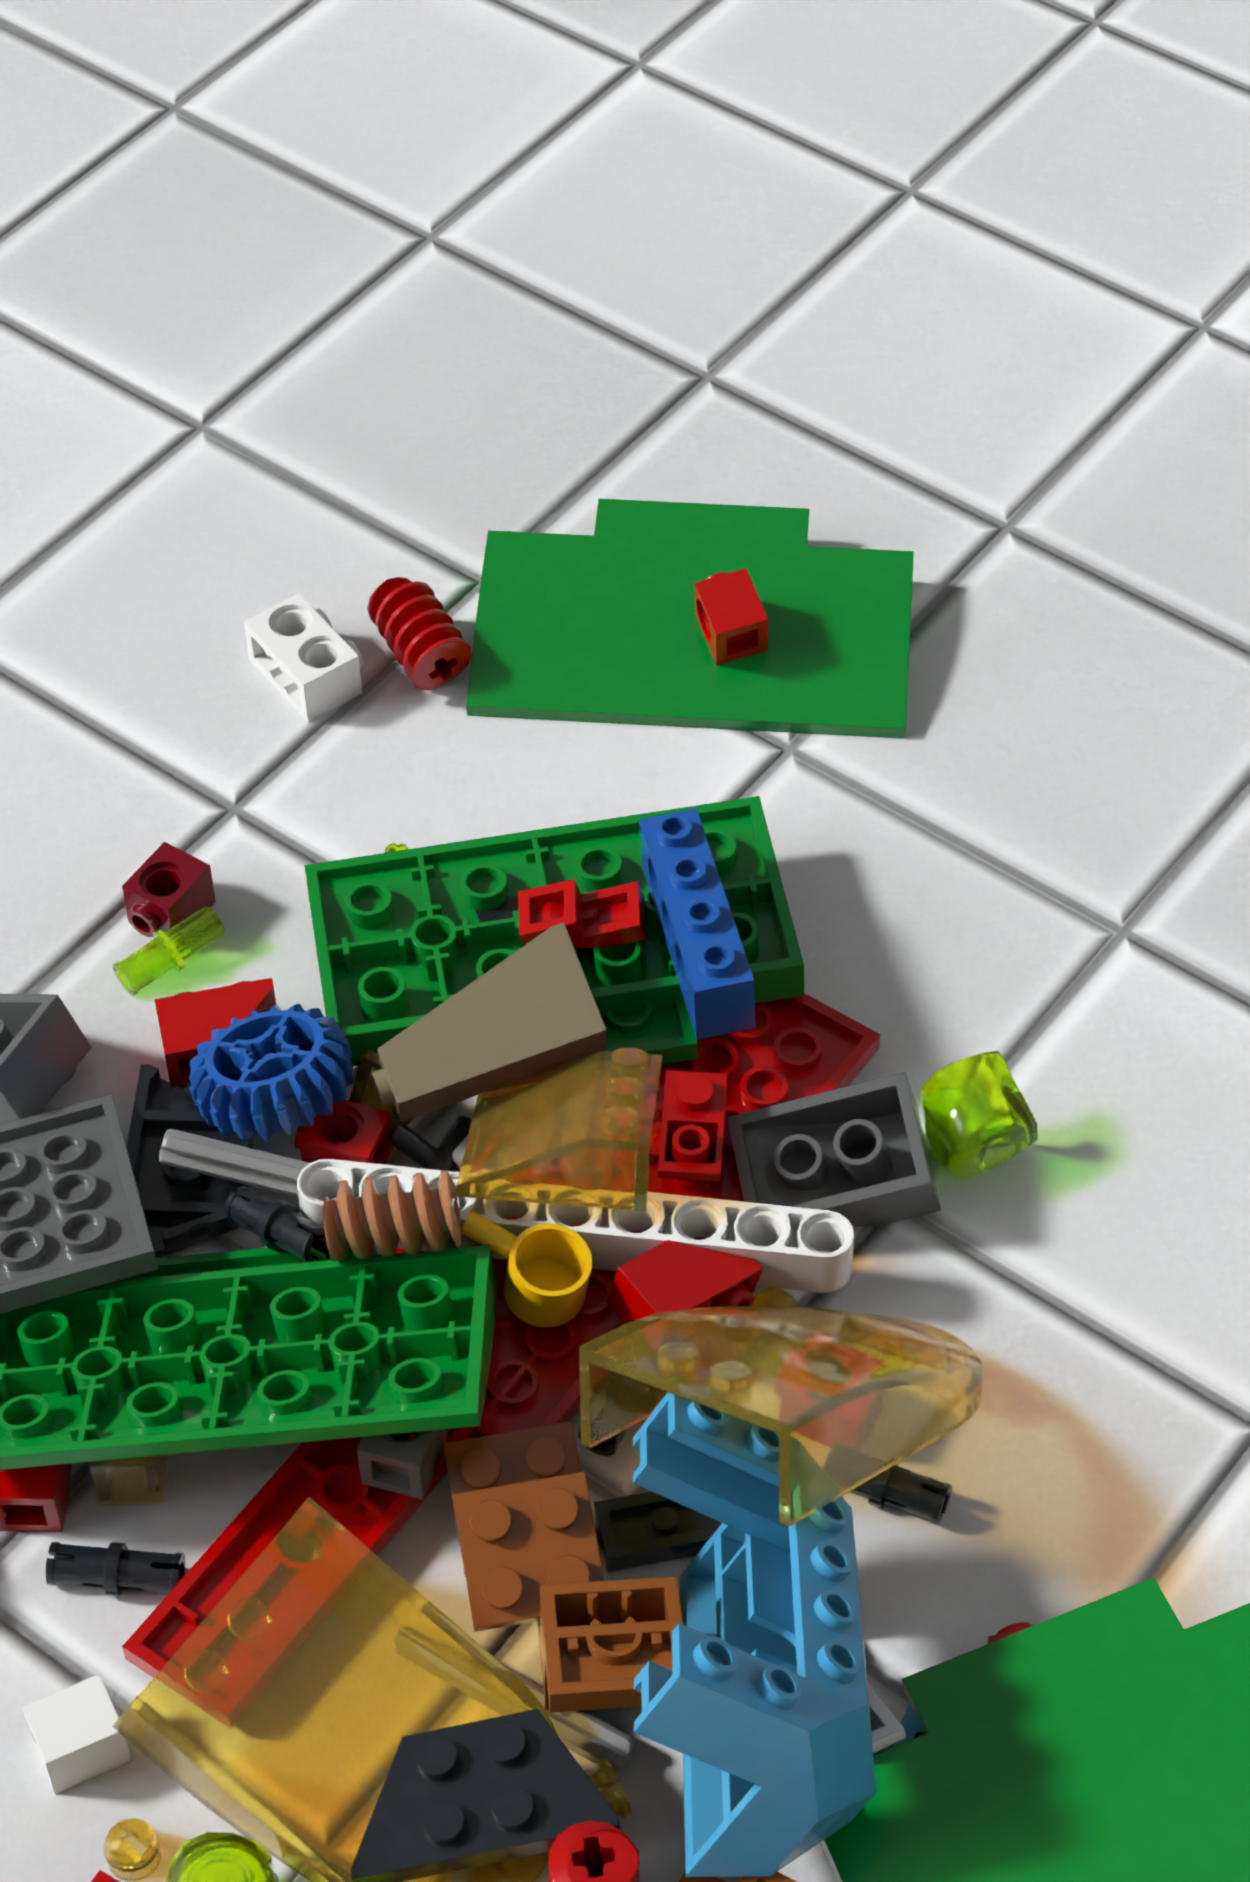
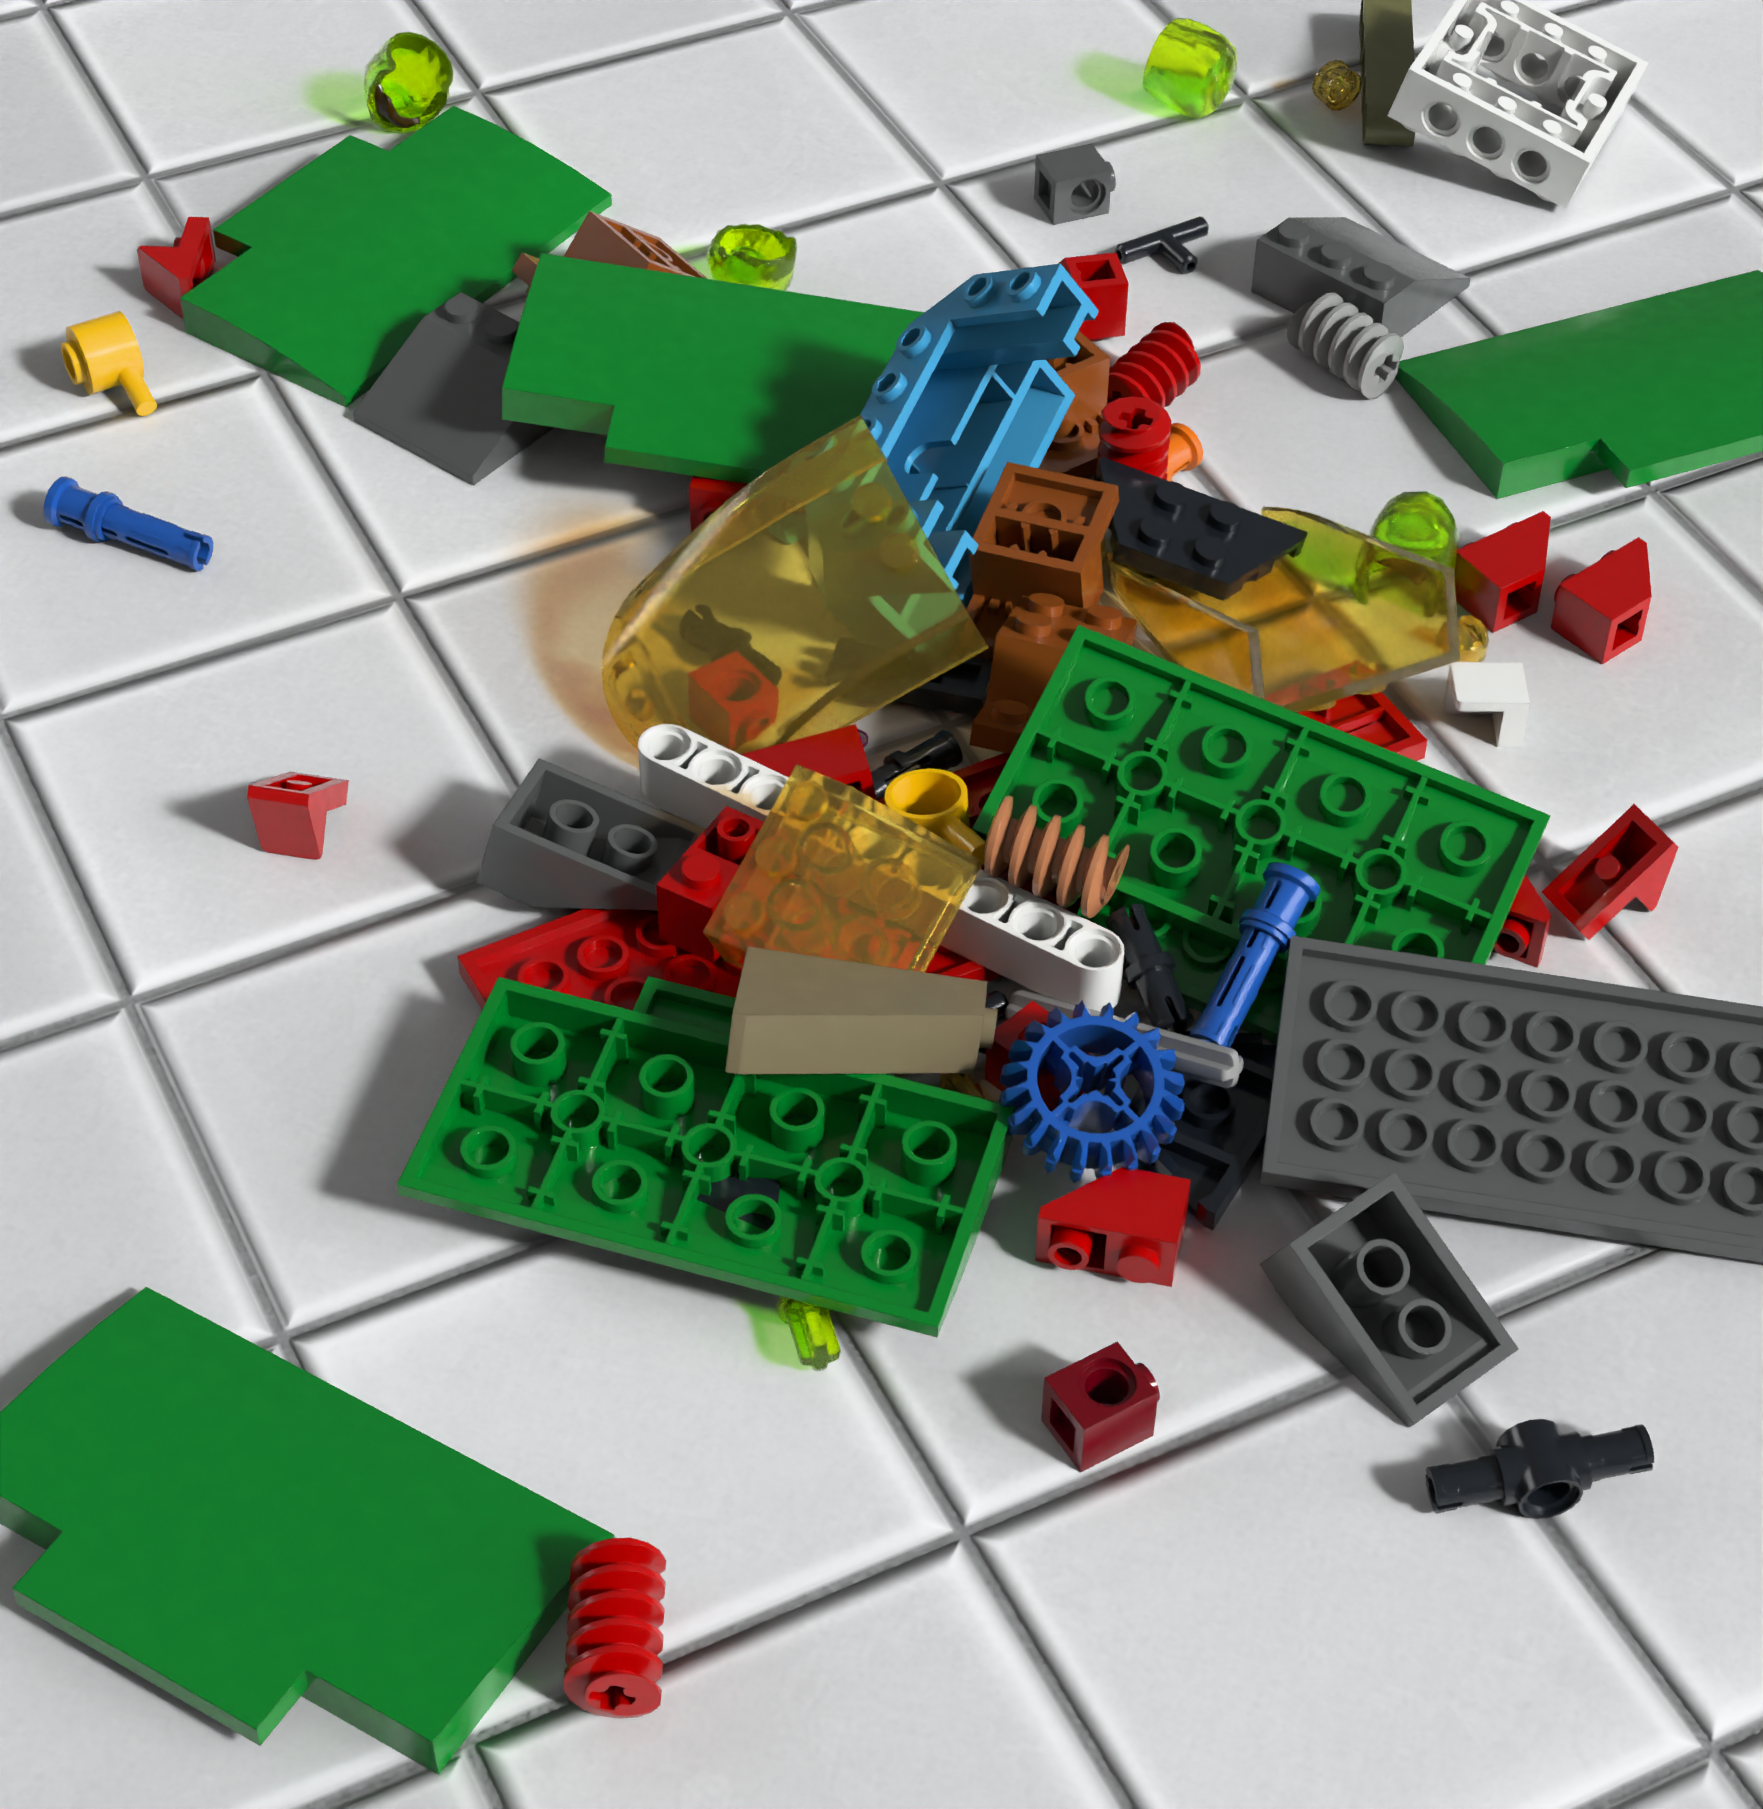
camera: 155 degrees left, 5 degrees down
(168, 950) = (1144, 1343): clear neon green axle -> none
(179, 1243) = (1265, 933): none -> blue pin
(304, 657) = (783, 1672): white brick -> none
(591, 918) = (688, 1111): red slope -> none
(697, 924) = (582, 1019): blue brick -> none
(731, 616) = (243, 1436): red brick -> none
(976, 1116) = (440, 846): clear neon green piece -> none
(1130, 1109) = (293, 811): none -> red slope

